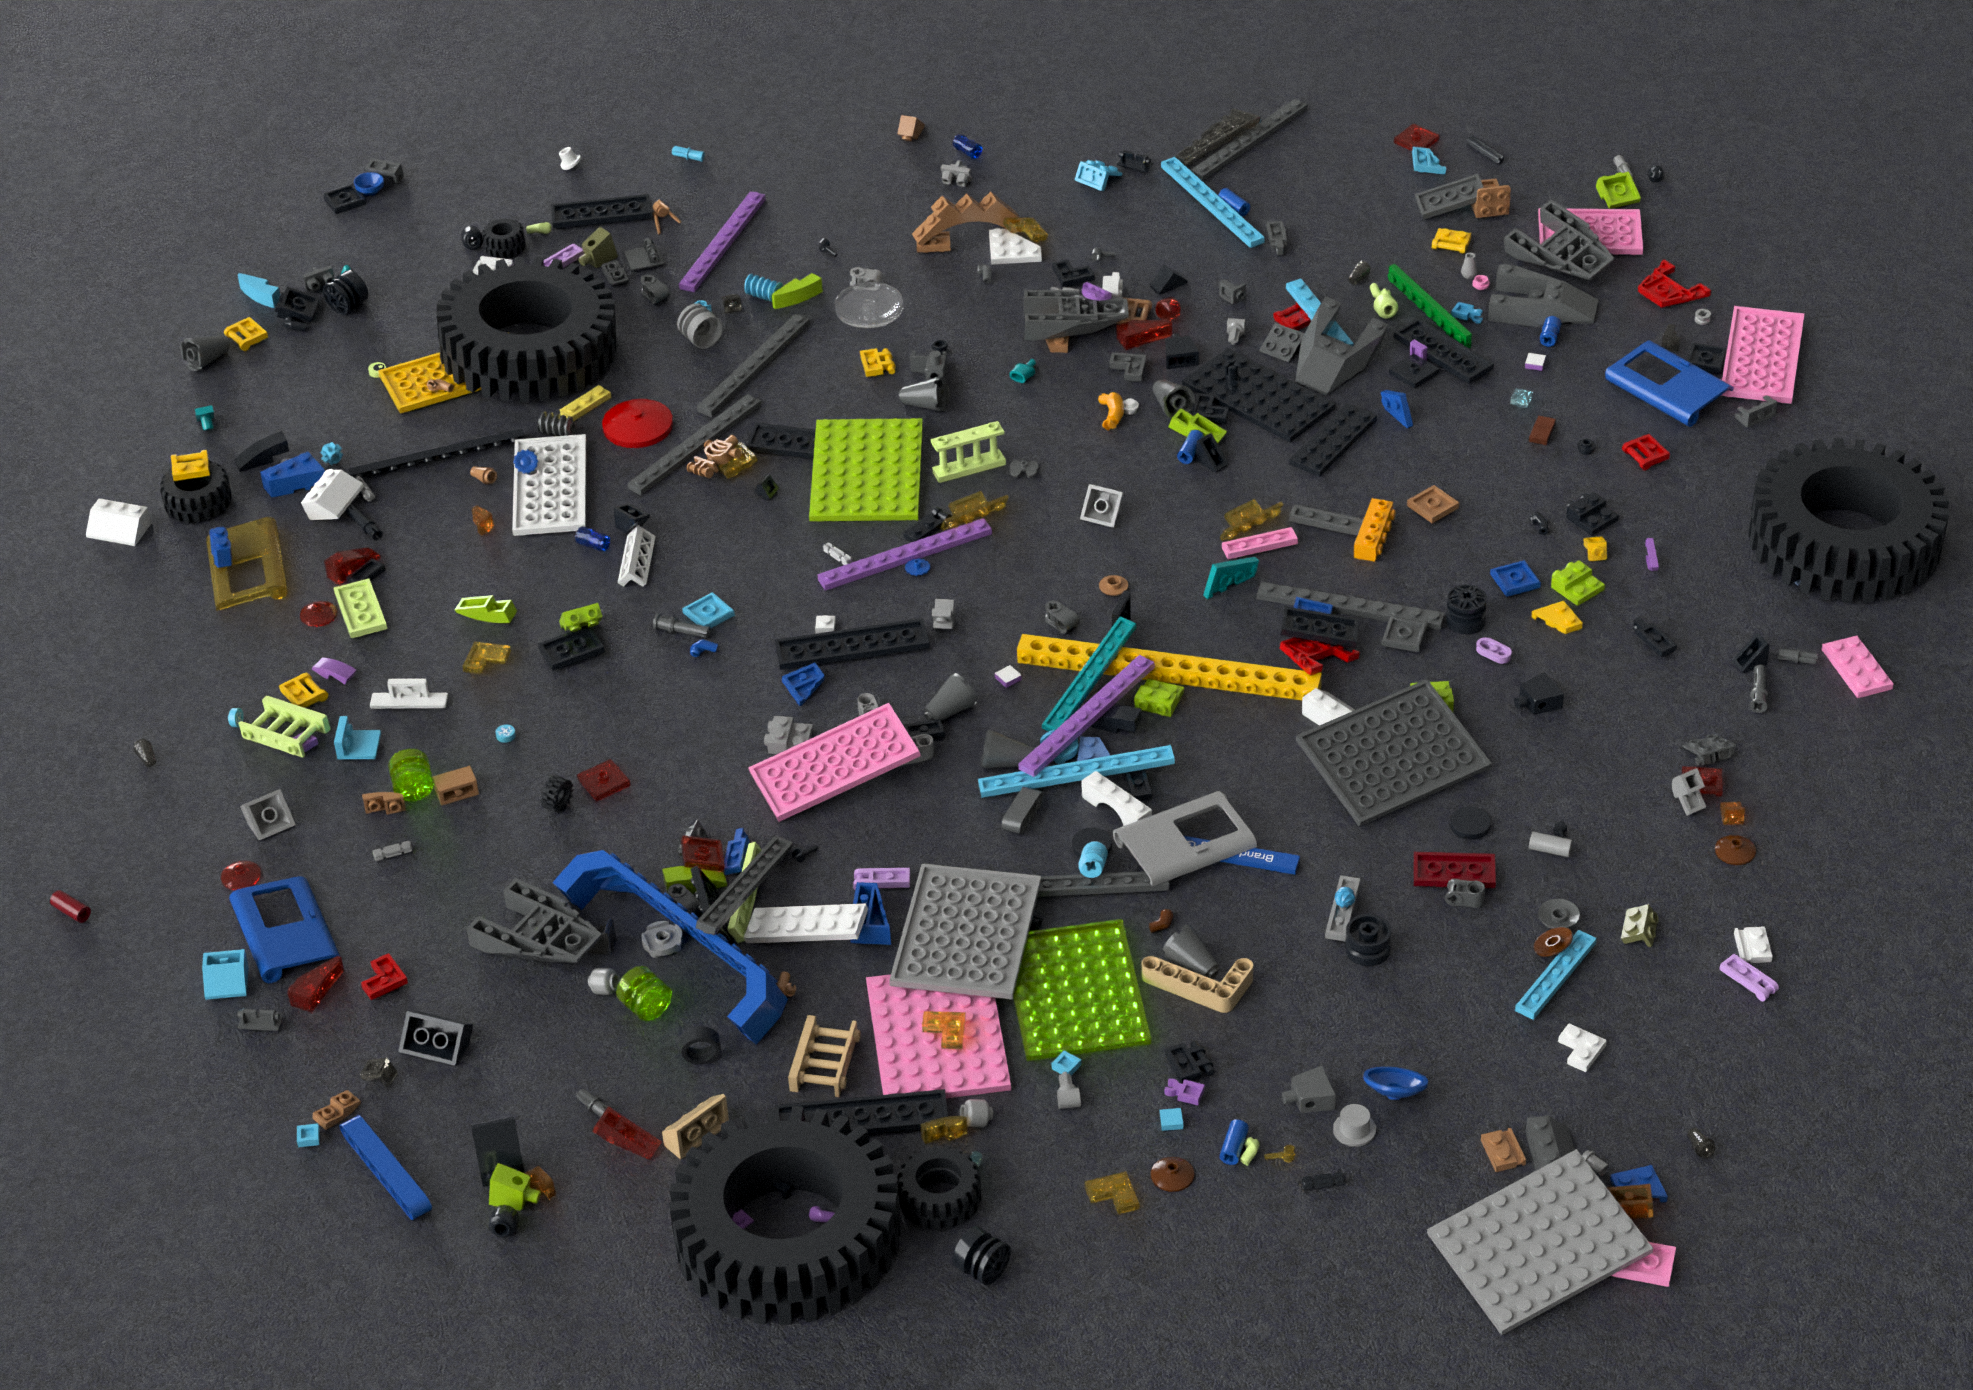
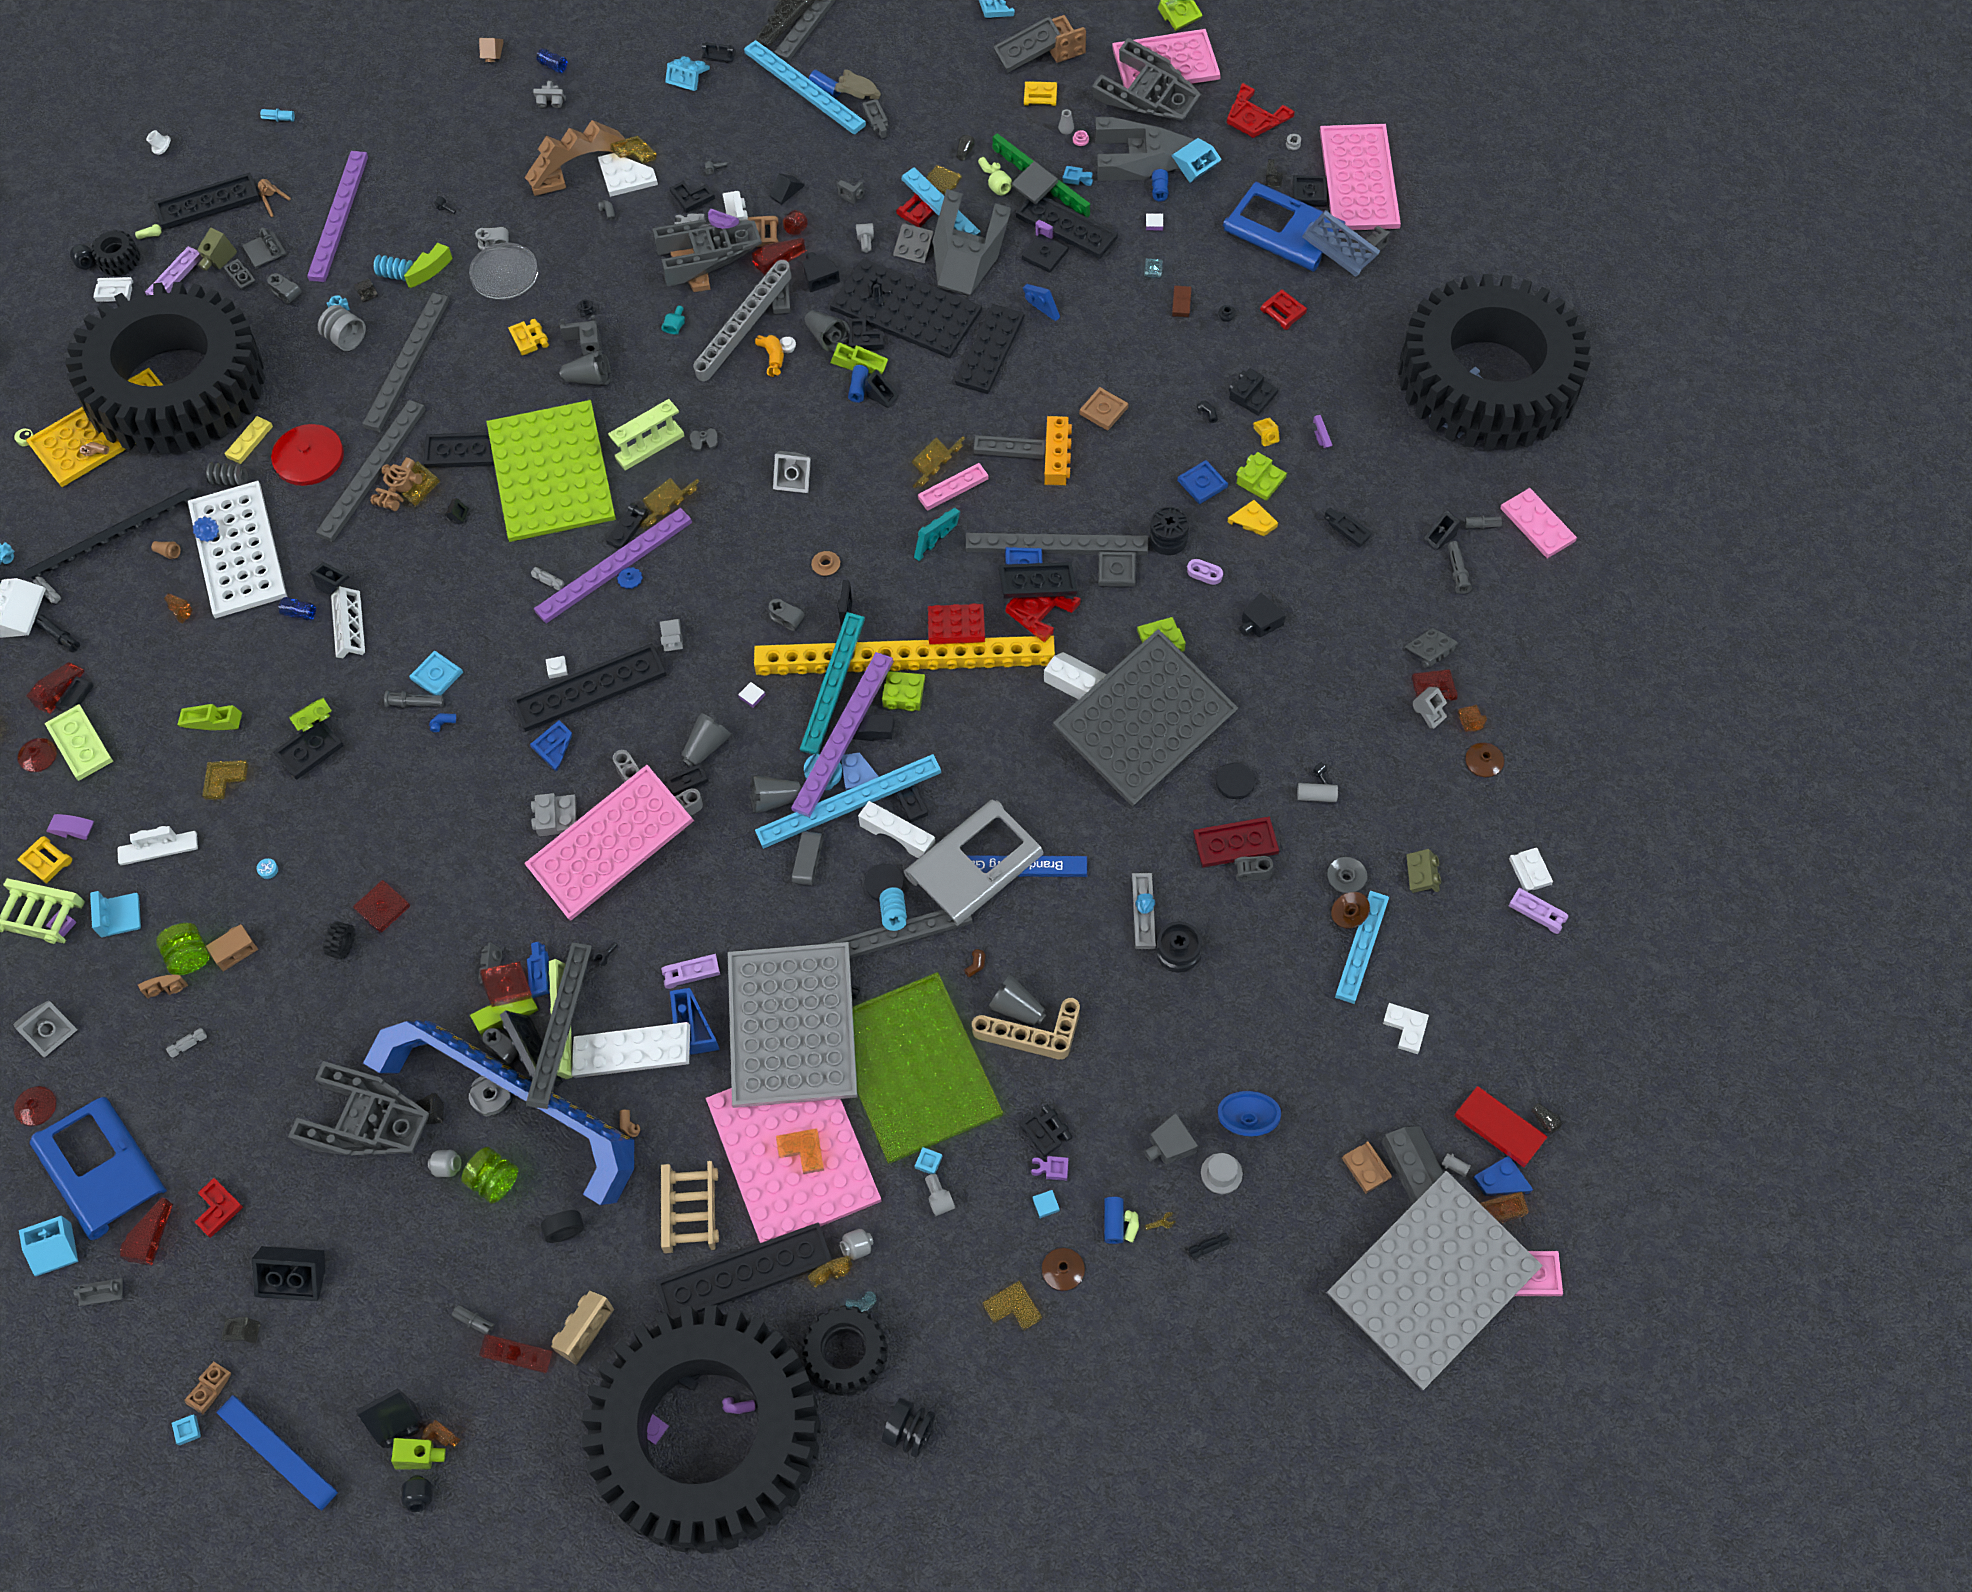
camera: 15 degrees left, 20 degrees up
(1090, 377) = (749, 312): none -> light grey beam
(1227, 649) = (956, 624): none -> red plate
(1265, 207) = (857, 86): none -> dark tan tile
(1330, 292) = (943, 179): none -> clear yellow piece
(1420, 308) = (1034, 182): none -> dark grey tile
(1594, 314) = (1196, 159): none -> medium azure slope
(1651, 1140) = (1500, 1126): none -> red tile
(1713, 404) = (1338, 250): none -> sand blue fence

